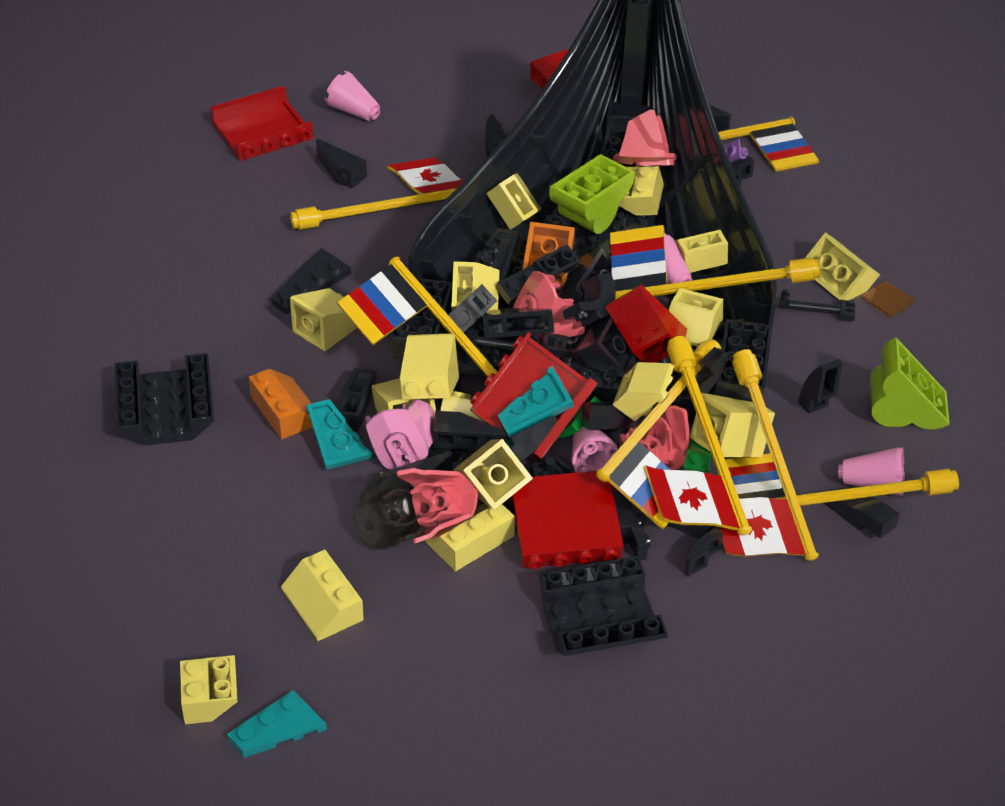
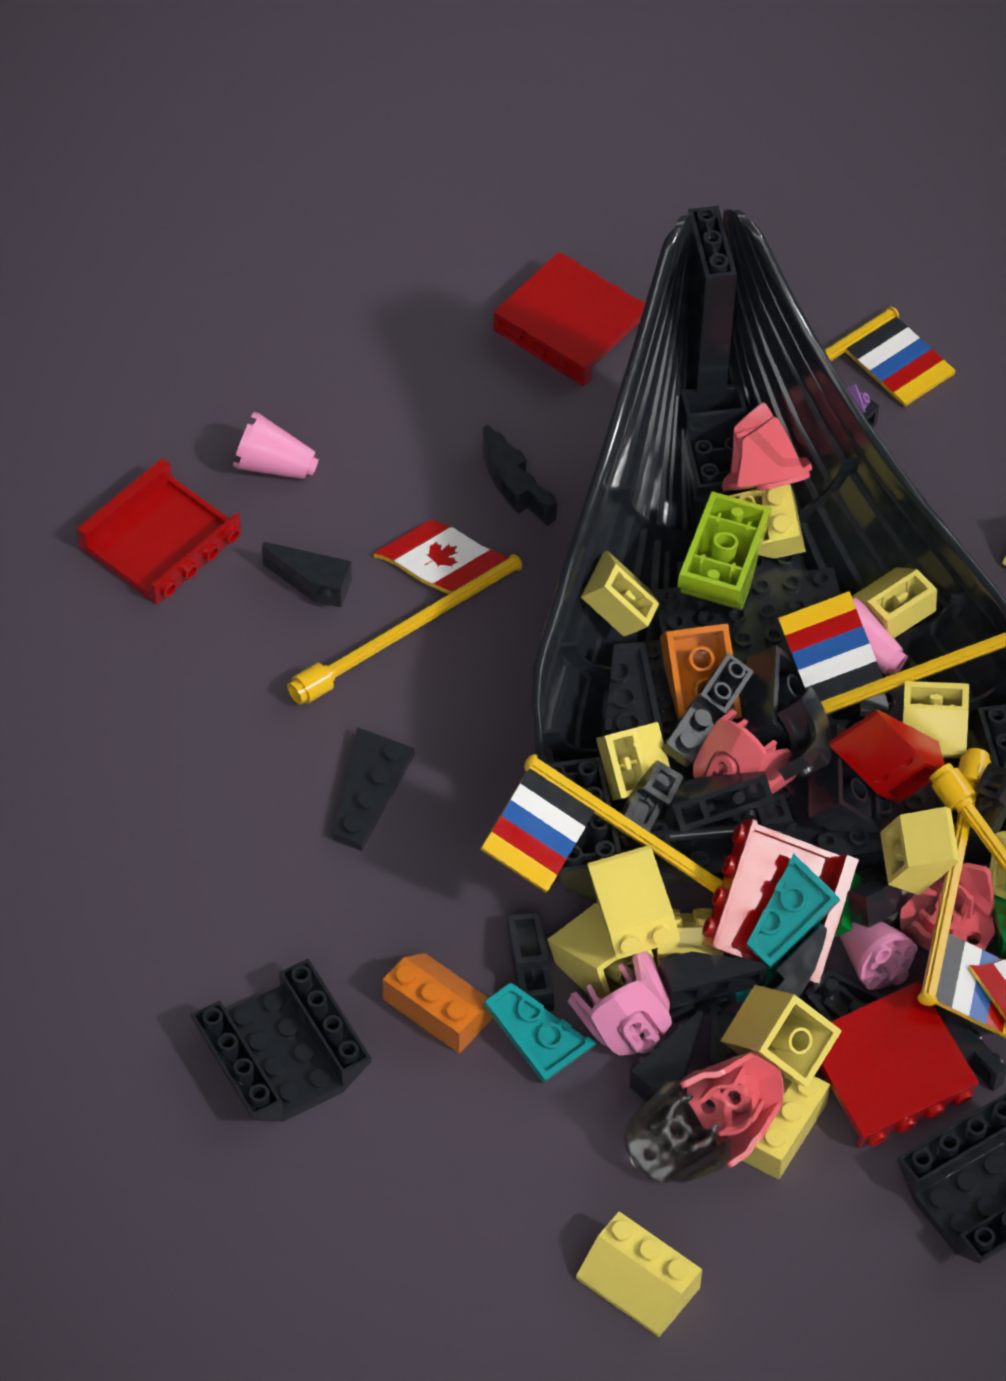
camera: 20 degrees left, 10 degrees up
(320, 318) = (426, 846): light yellow slope -> none

